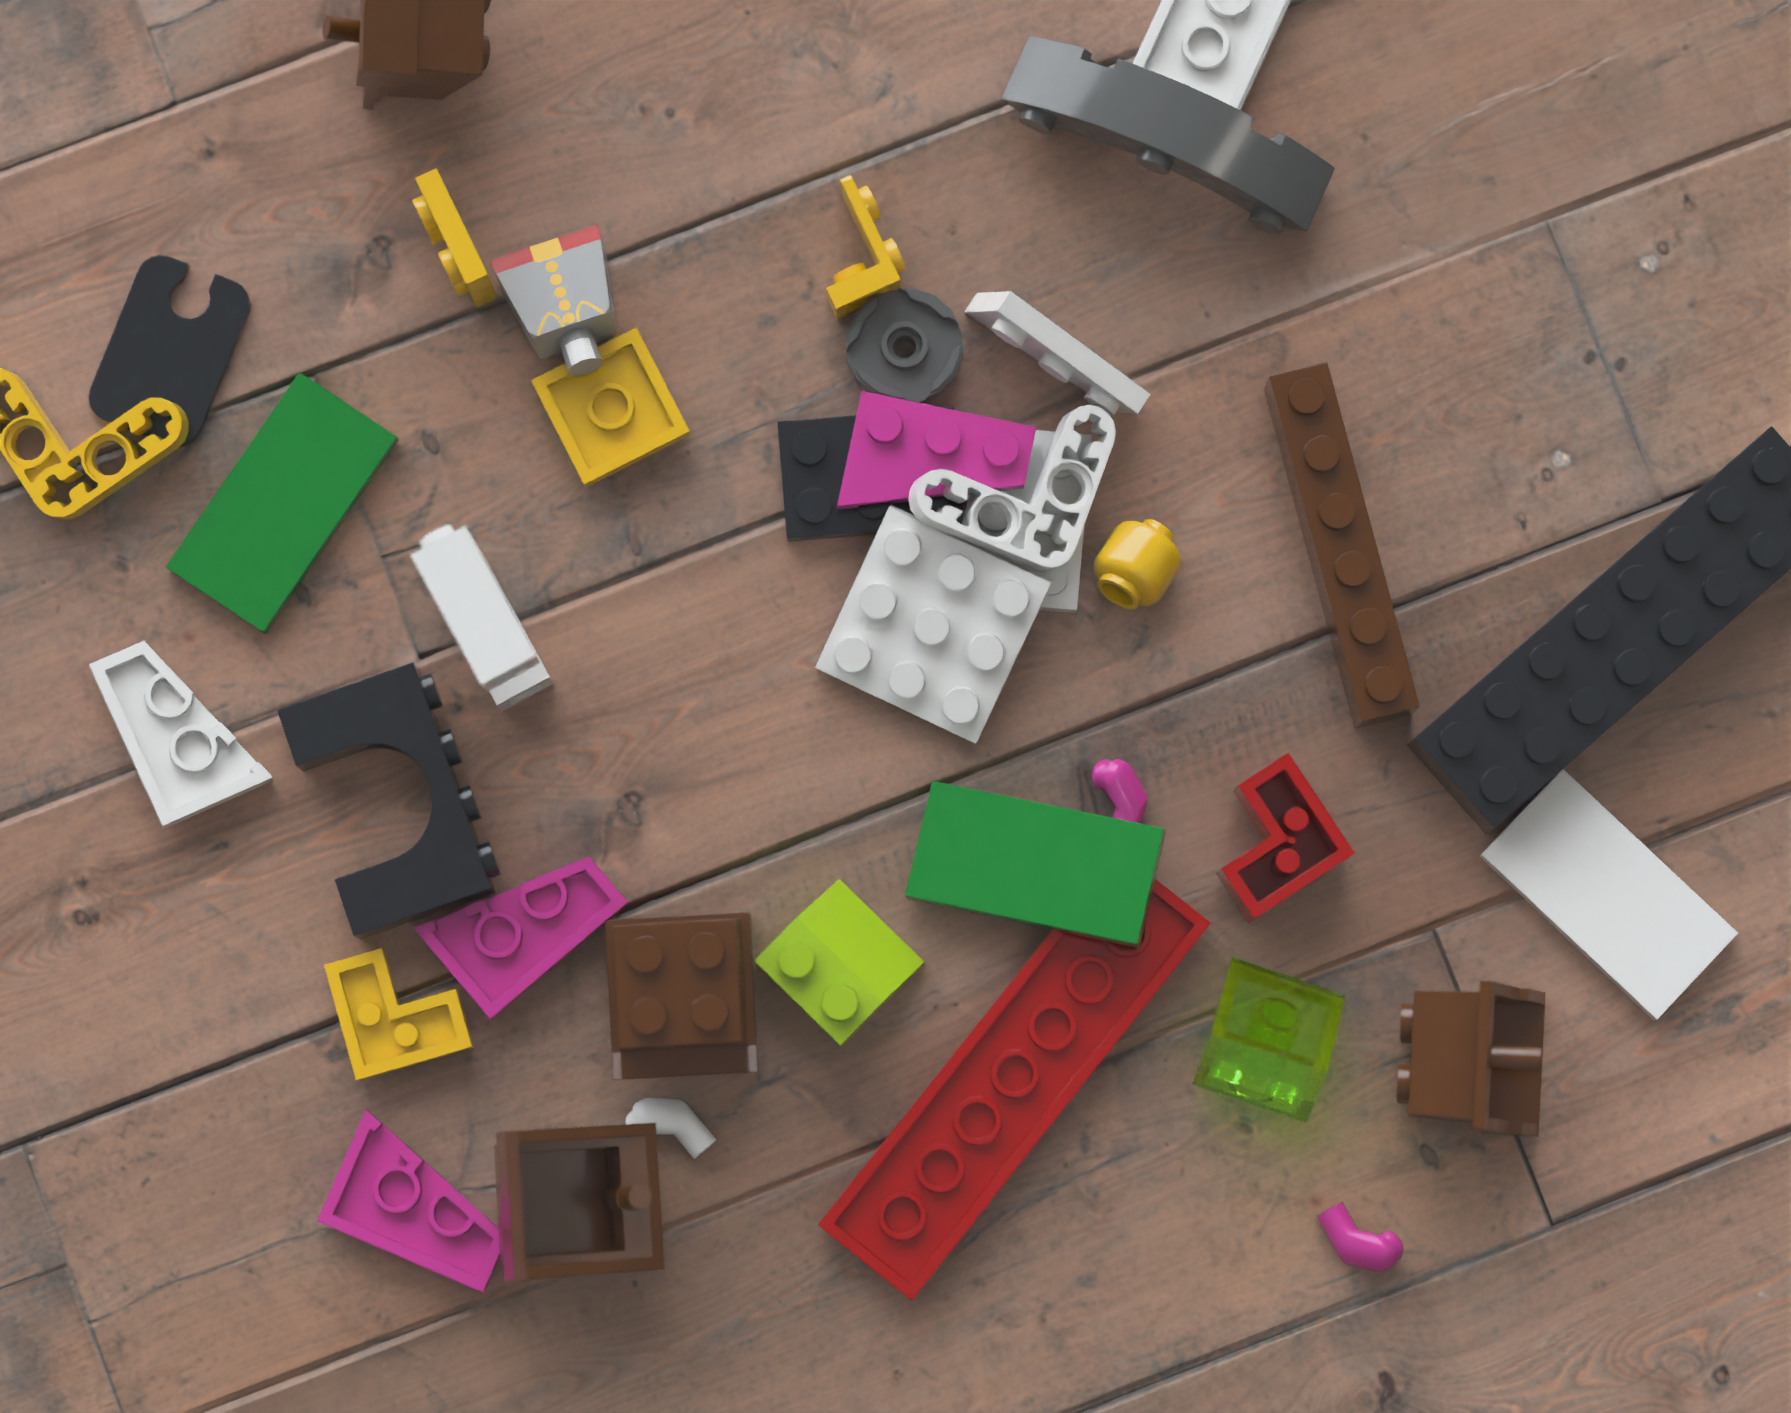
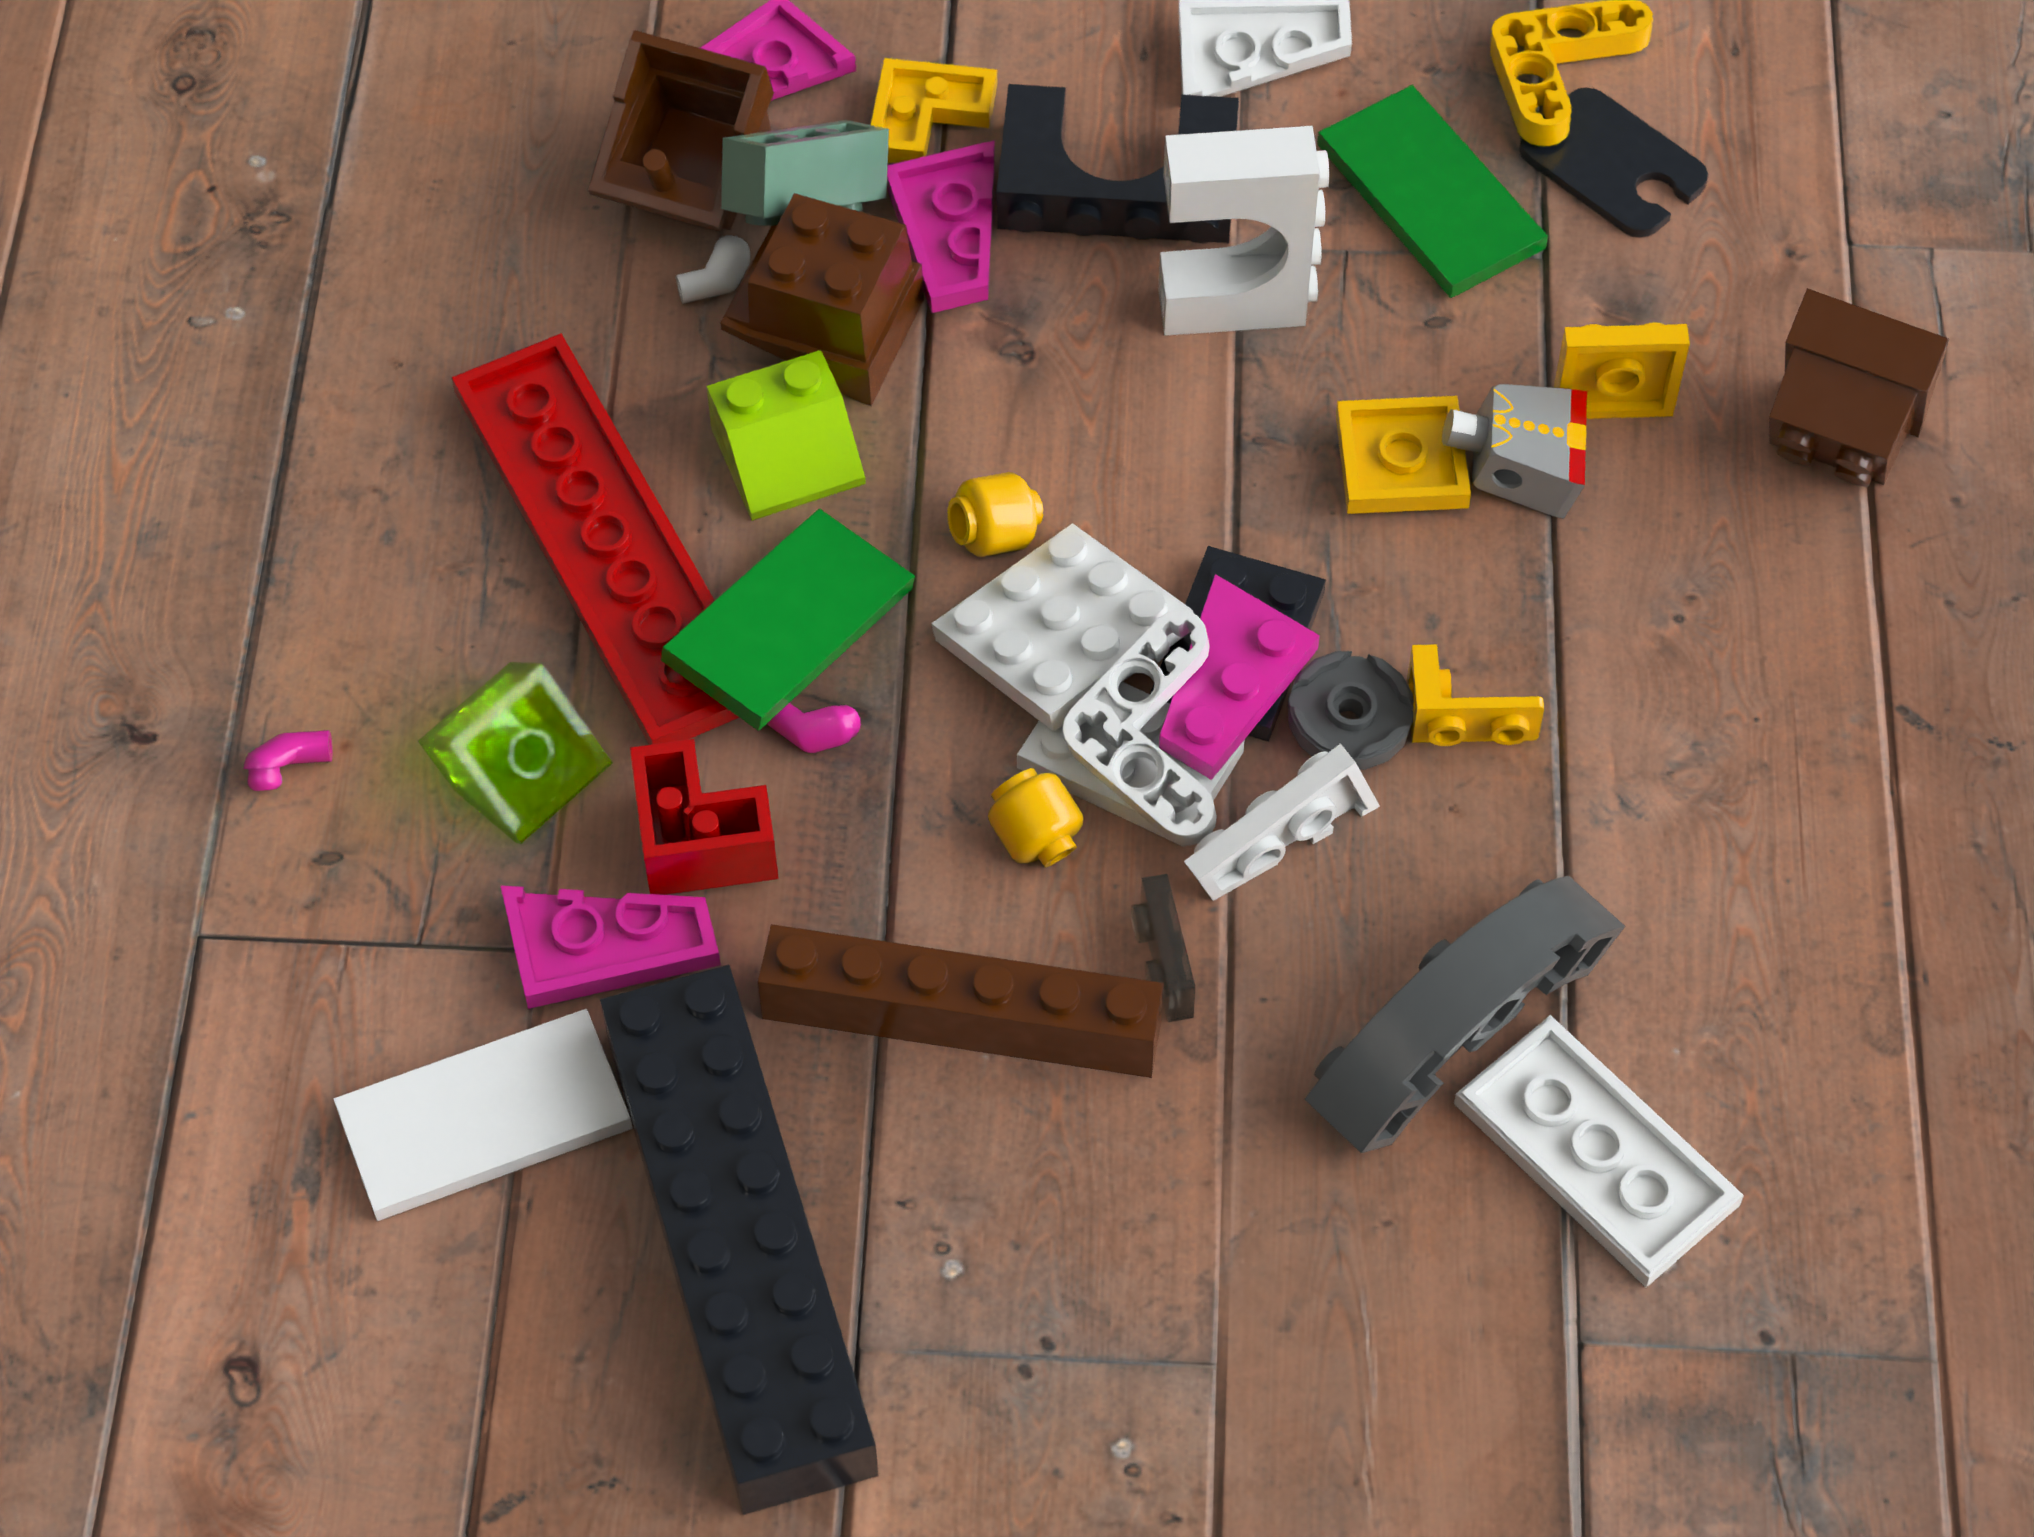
camera: 115 degrees right, 25 degrees down
(558, 1070) = (823, 161): none -> sand green brick
(841, 736) = (994, 514): none -> yellow head
(1193, 418) = (1158, 923): none -> clear smoke plate
(1413, 872) = (595, 944): none -> dark pink wing
(1475, 1057) = (386, 895): reddish brown piece -> none

